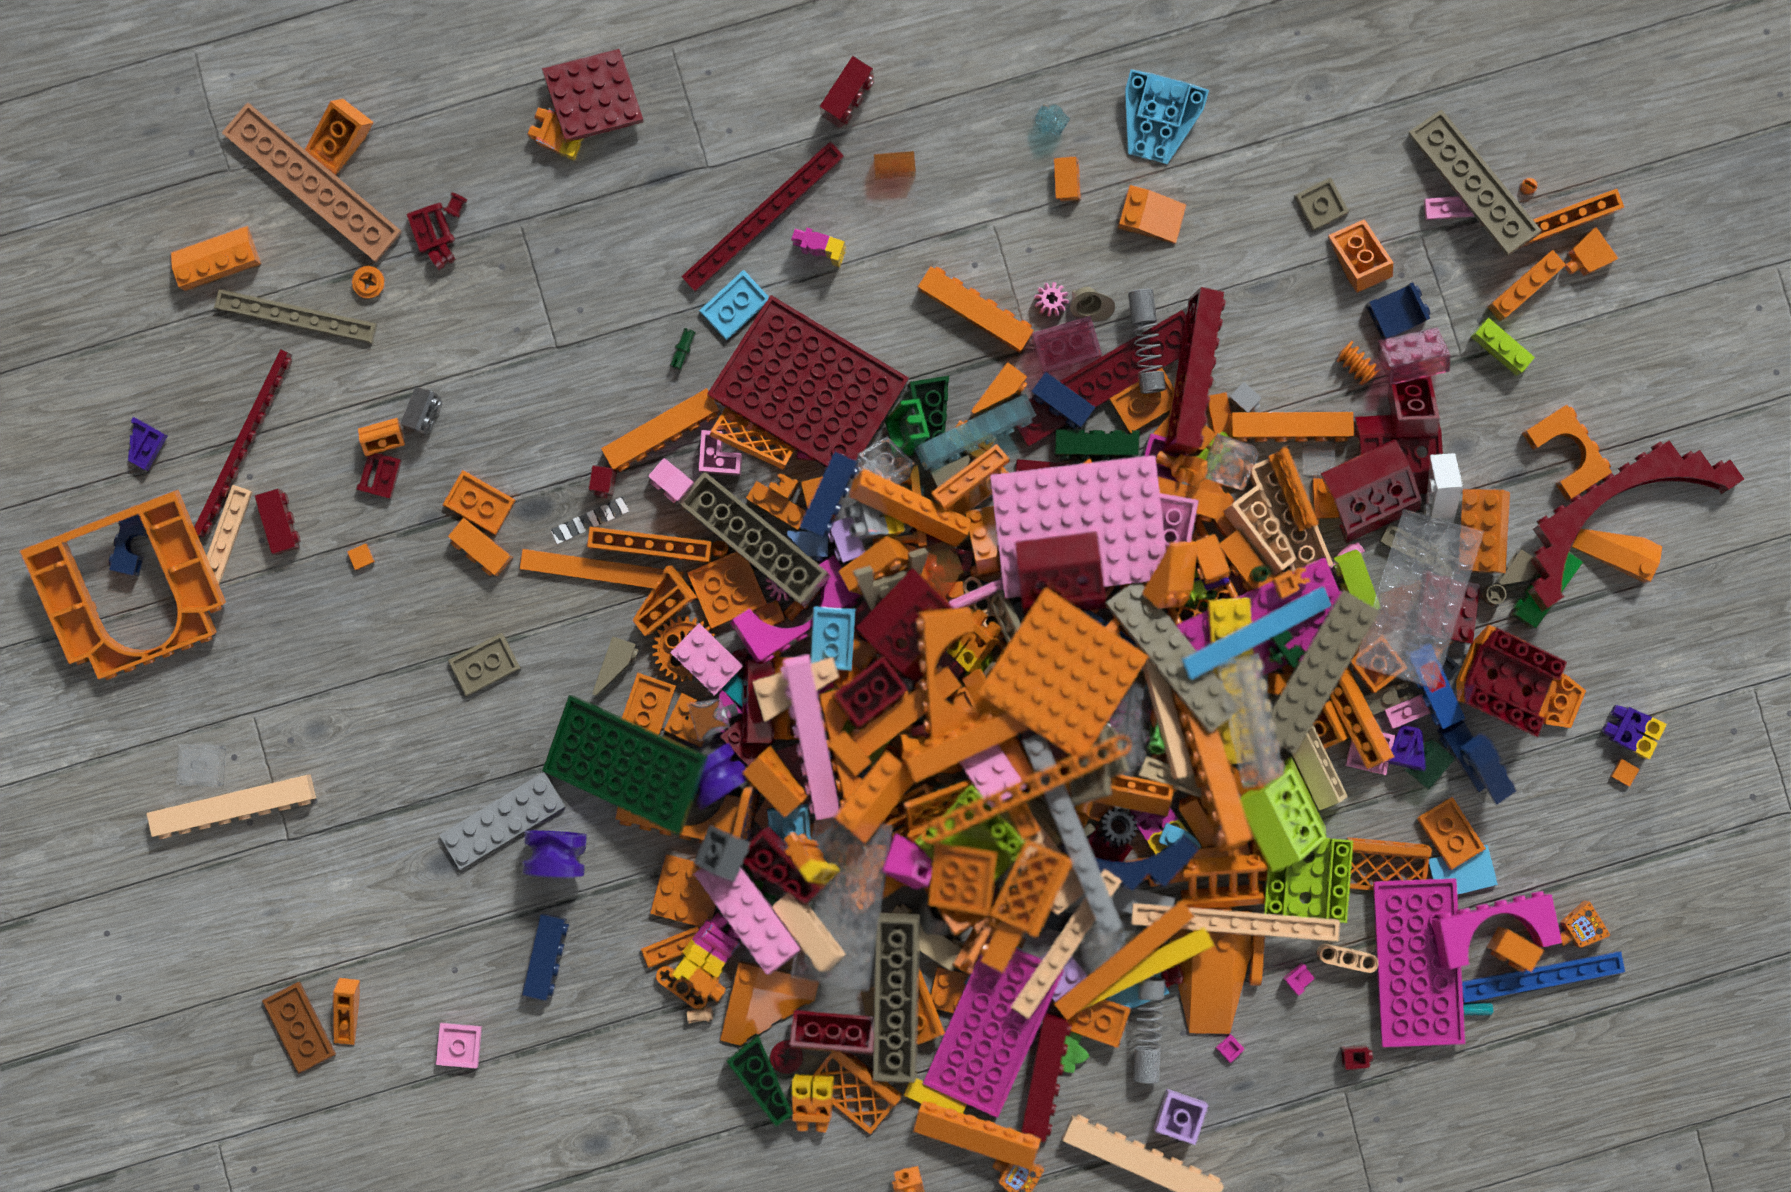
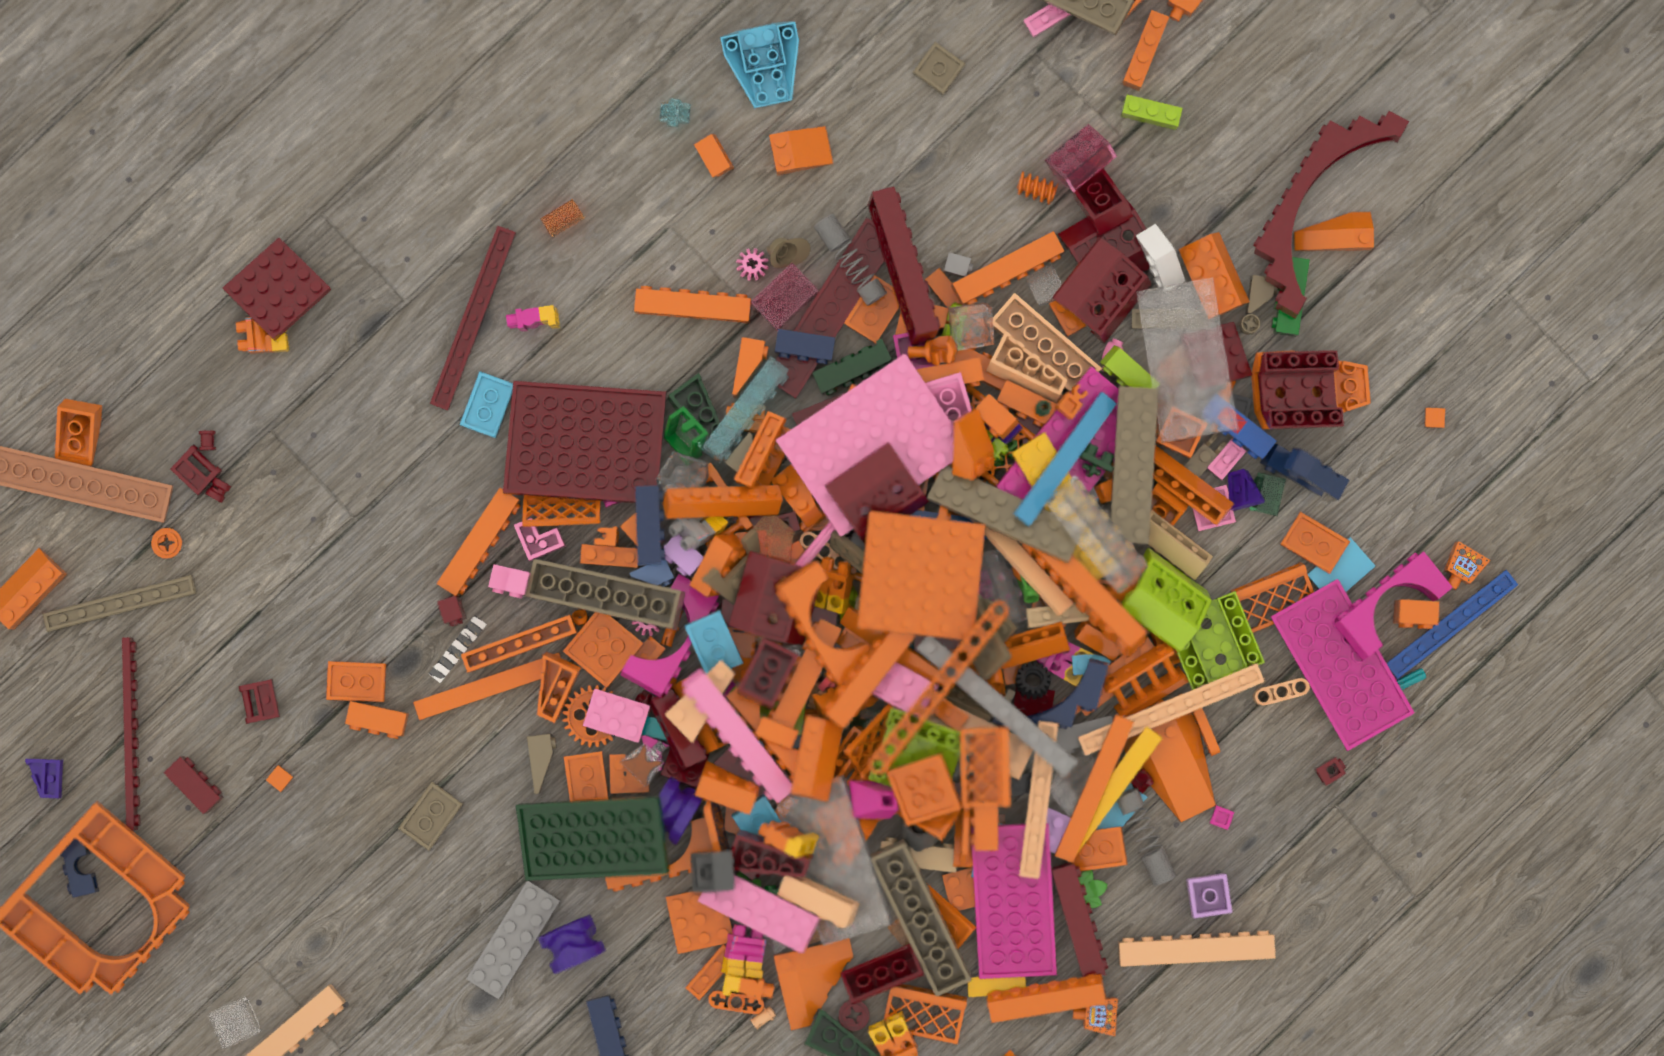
camera: 25 degrees left, 0 degrees up
(228, 529) = (155, 812): light nougat tile -> none
(381, 436) = (245, 668): orange brick -> none
(421, 410) = (267, 628): flat silver slope -> none
(682, 348) = (462, 464): dark green pin -> none
(847, 92) = (491, 177): dark red brick -> none
(1292, 489) = (1035, 323): orange fence -> none
(1298, 978) = (1249, 729): dark pink panel -> none
(1361, 256) = (994, 95): orange slope -> none
(1398, 311) = (1049, 126): dark blue panel -> none
(1591, 466) = (1277, 174): orange arch -> none
(1628, 728) = (1418, 379): dark purple hips -> none

